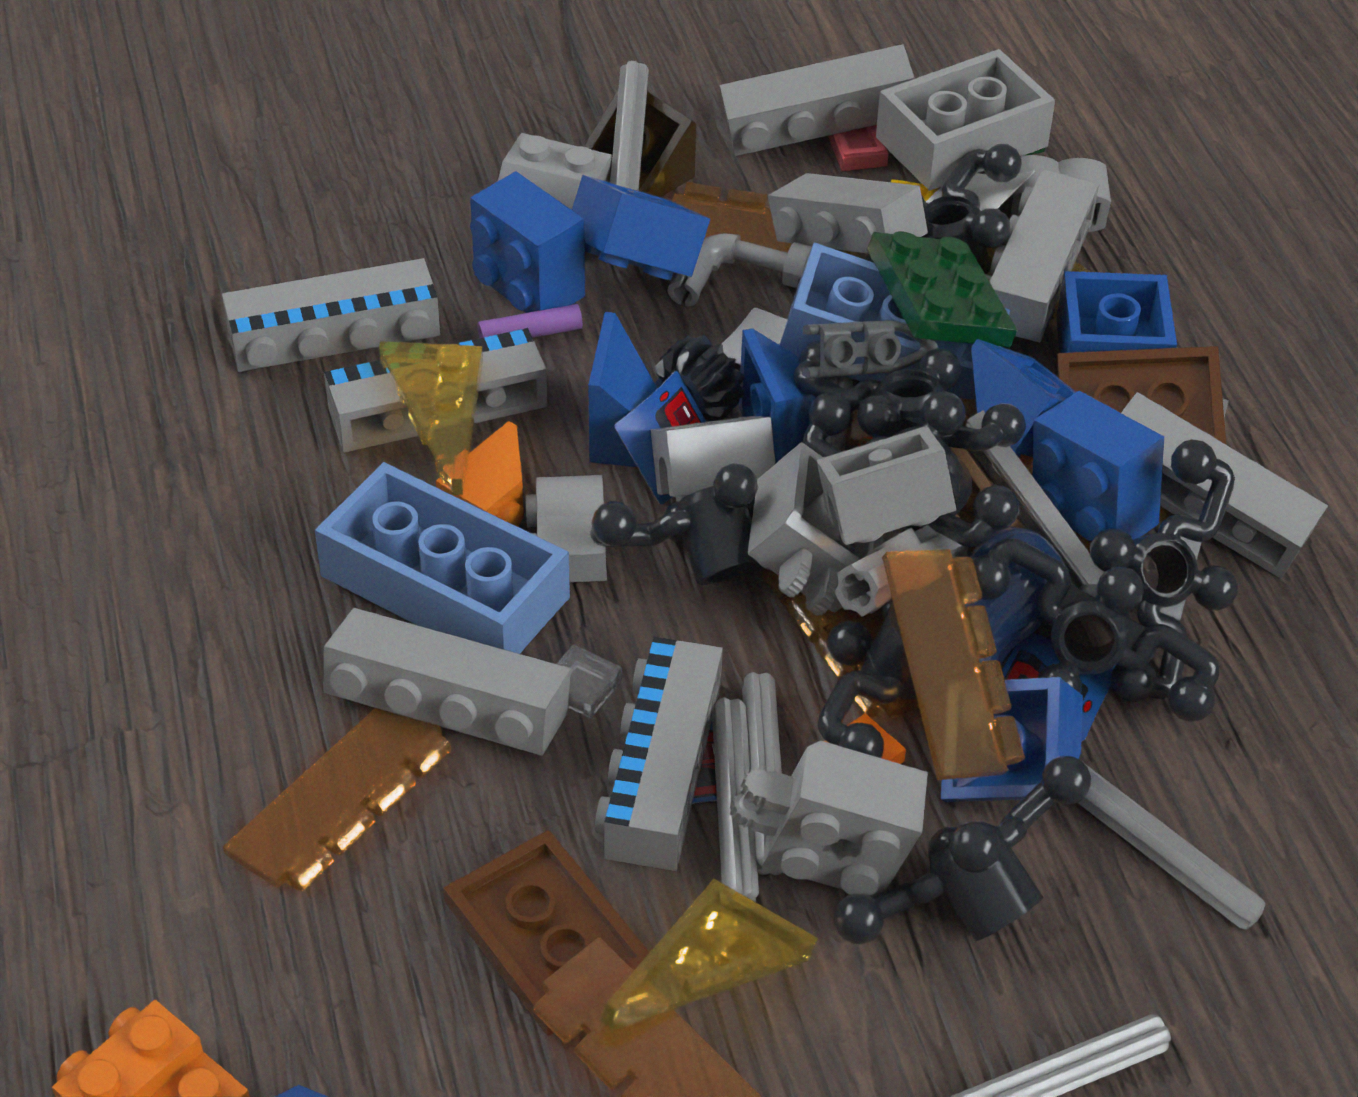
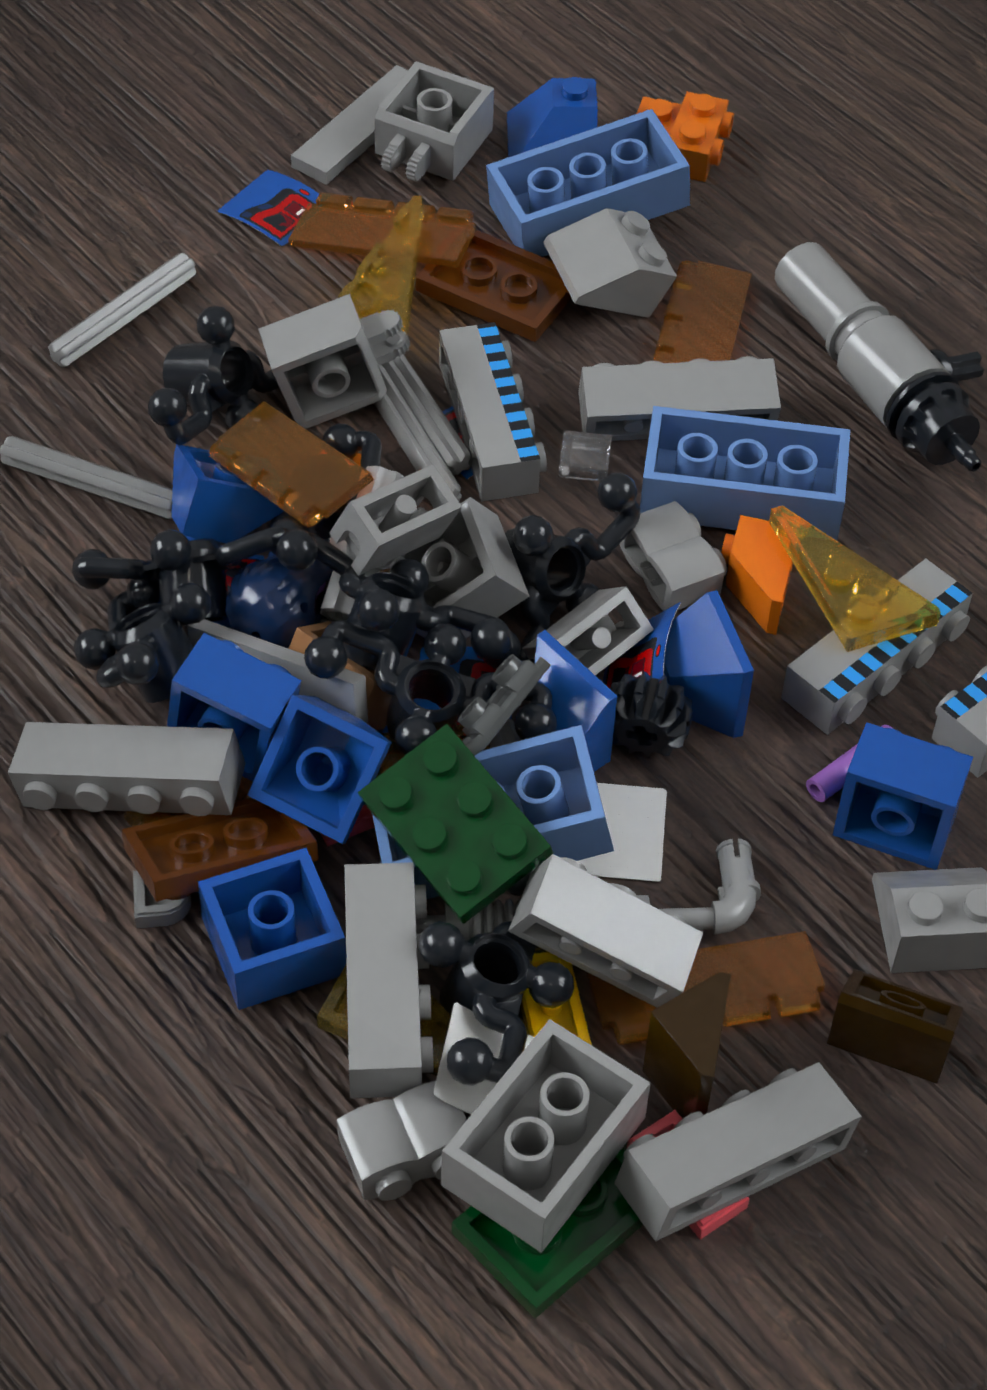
camera: 155 degrees right, 5 degrees up
(188, 648) = (884, 361): none -> light grey piece
(354, 990) = (613, 166): none -> medium blue brick
(405, 867) = (612, 262): none -> light grey slope
(629, 125) = (894, 961): light grey axle -> none
(639, 228) = (809, 836): blue brick -> none
(815, 139) = (685, 1045): none -> dark brown slope

